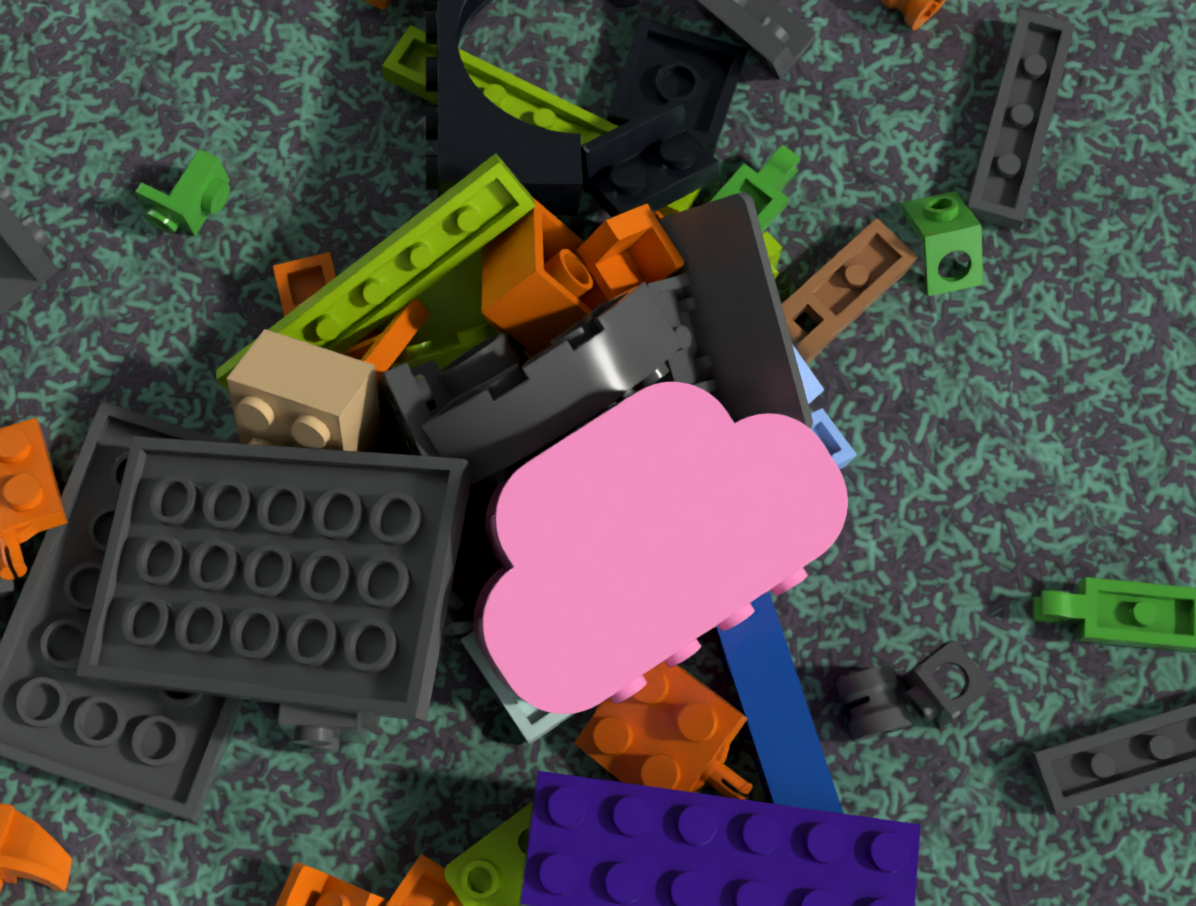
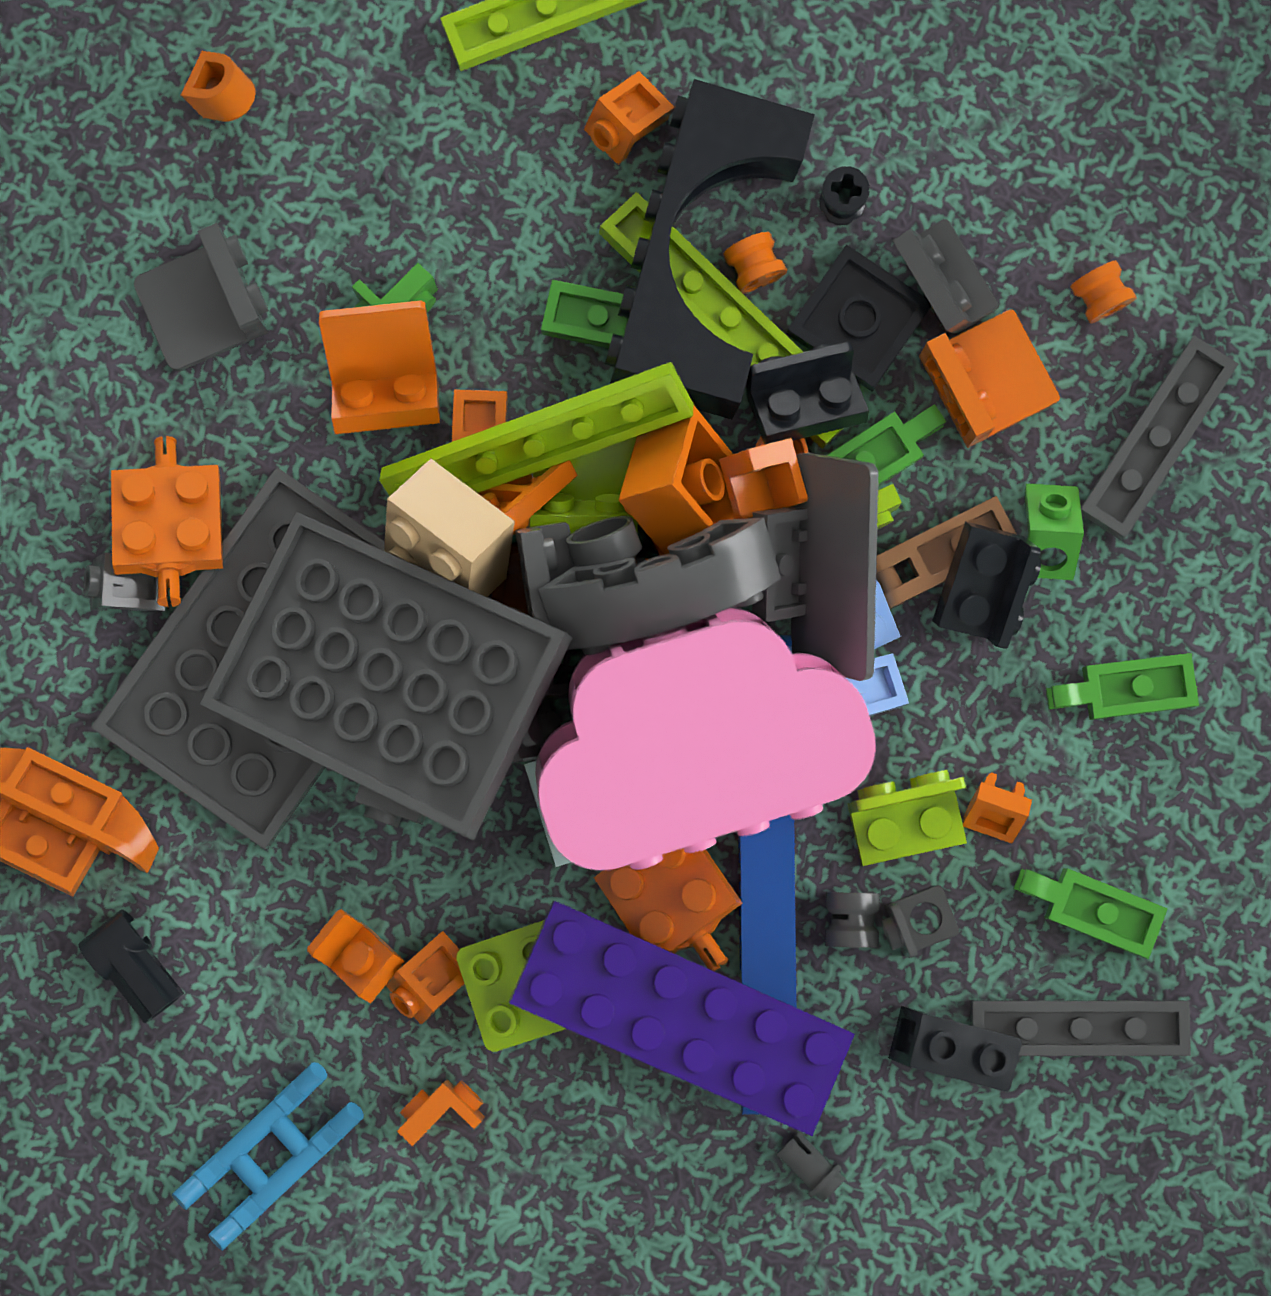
camera: 20 degrees right, 10 degrees up
(186, 261) = (380, 367): none -> orange bracket
(388, 159) = (582, 314): none -> bright green plate
(553, 60) = (754, 262): none -> orange wheel
(826, 107) = (989, 377): none -> orange bracket
(896, 574) = (907, 821): none -> lime bracket
(899, 305) = (988, 584): none -> black bracket
(989, 539) = (997, 810): none -> orange tile
(1032, 811) = (955, 1049): none -> black bracket
(1081, 372) = (1131, 687): none -> bright green plate

